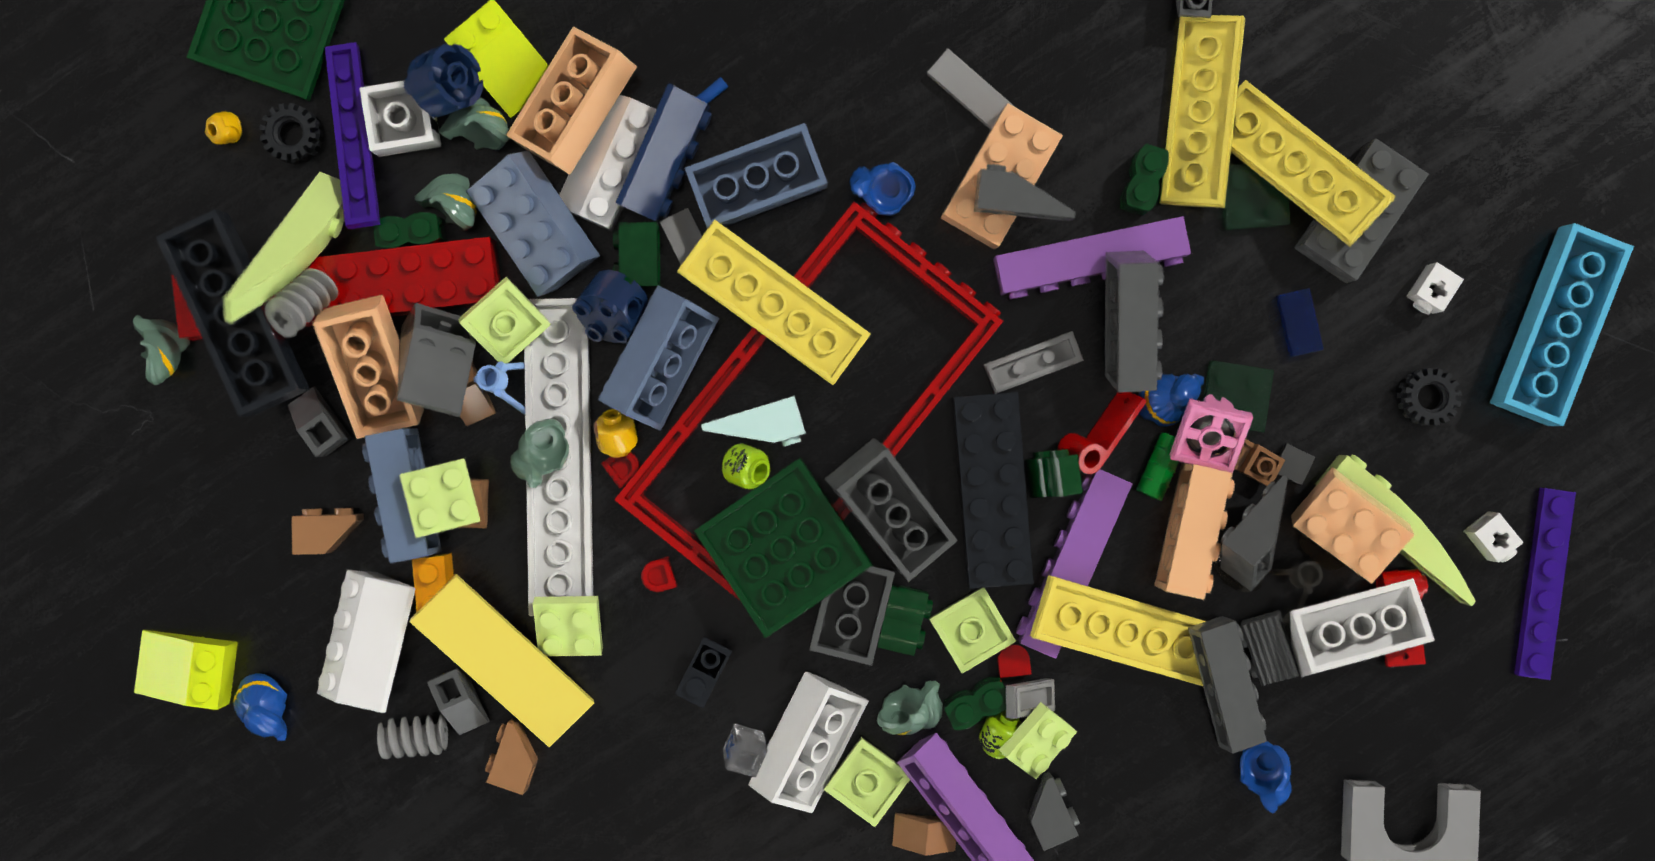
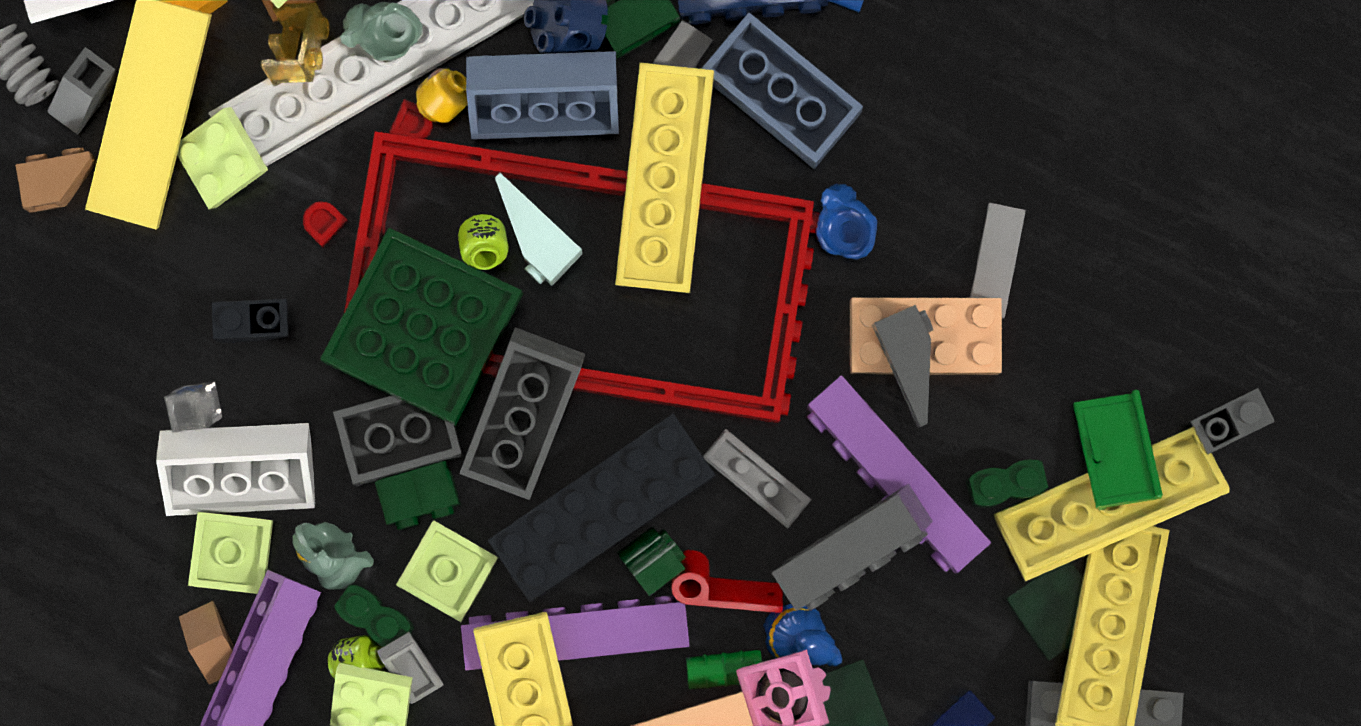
camera: 60 degrees right, 5 degrees down
(495, 511) = (296, 19): none -> clear yellow window
(1013, 661) = (438, 633): red tile -> none
(1167, 79) = (1118, 437): none -> green door

